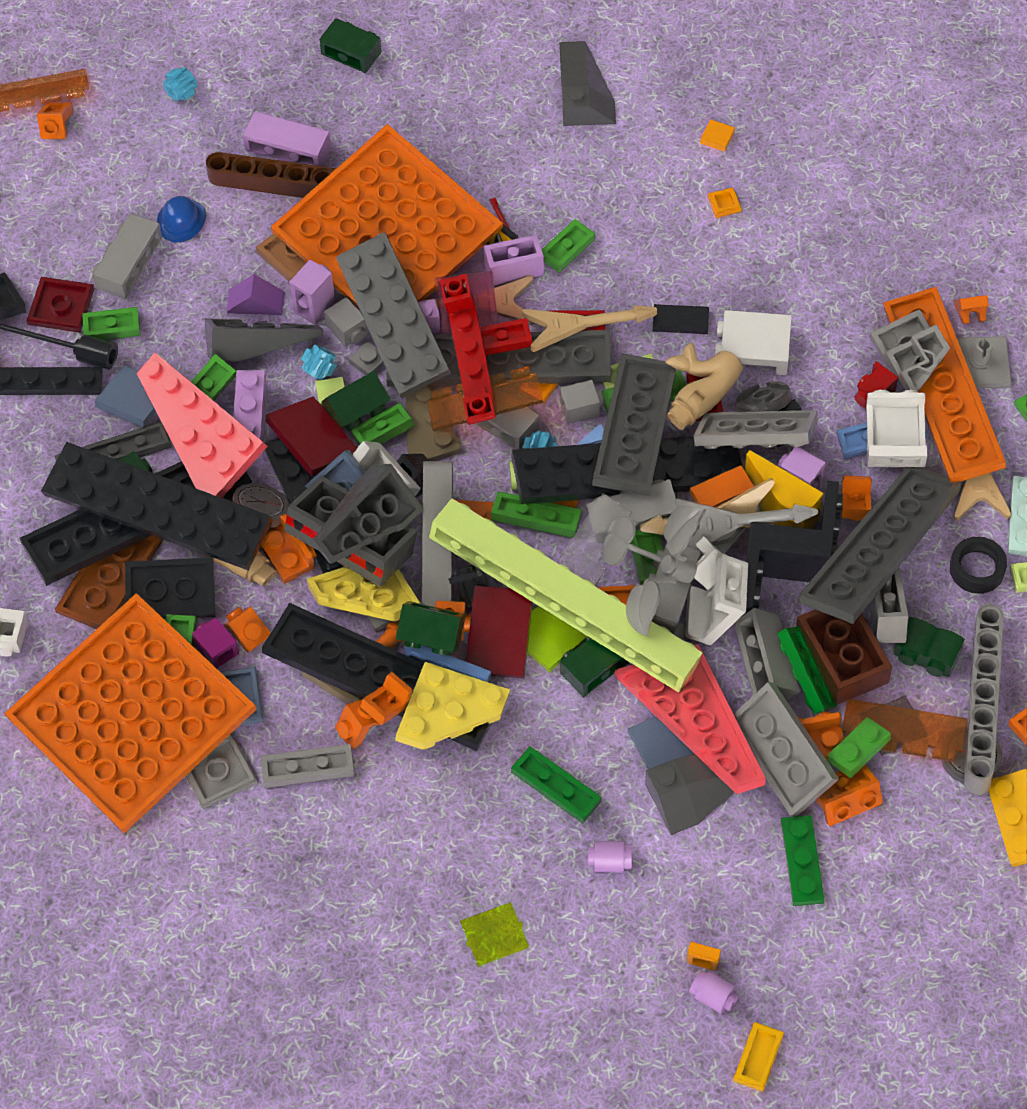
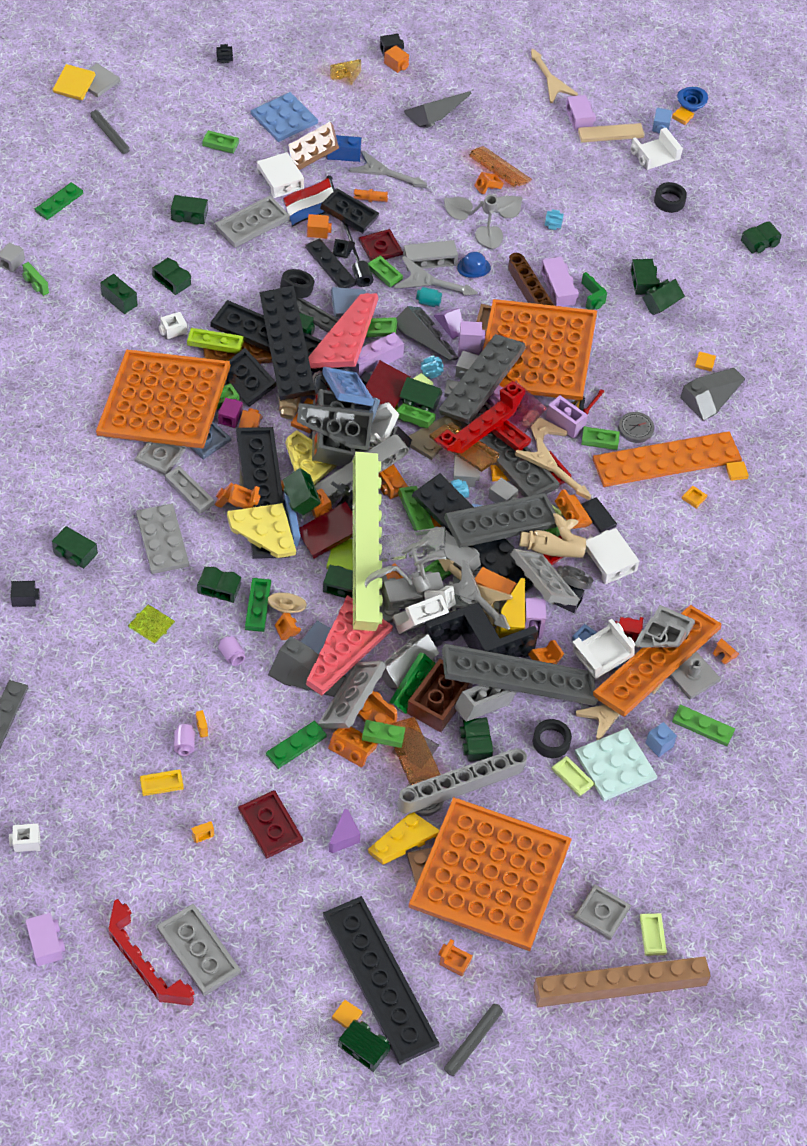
camera: 50 degrees right, 5 degrees down
(32, 349) = (342, 248): none -> black slope
(48, 426) = (305, 282): none -> black tyre
(78, 593) = (215, 340): none -> lime plate
(109, 125) = (489, 237): none -> light grey plant
(158, 288) = (420, 277): none -> light grey piece
(197, 298) = (429, 297): none -> teal brick
(296, 474) = (347, 386): none -> medium blue tile
(306, 964) = (74, 547): none -> dark green brick
(332, 108) = (598, 295): none -> green bracket
(340, 1071) = (24, 593): none -> black brick
(363, 844) = (162, 538): none -> light grey plate
(402, 44) = (663, 297): none -> dark green brick
(492, 813) = (219, 584): none -> dark green brick
(528, 65) = (705, 361): none -> light orange tile
(576, 198) = (636, 427): none -> flat silver tile
(580, 747) = (287, 602): none -> tan dish
(615, 770) = (286, 626): none -> orange tile
(646, 197) = (666, 459): none -> orange plate
(657, 341) = (572, 509): none -> orange bracket
(871, 1045) = (202, 832): none -> light orange tile
(902, 957) = (270, 824): none -> dark red tile
(973, 874) = (345, 834): none -> medium lavender slope

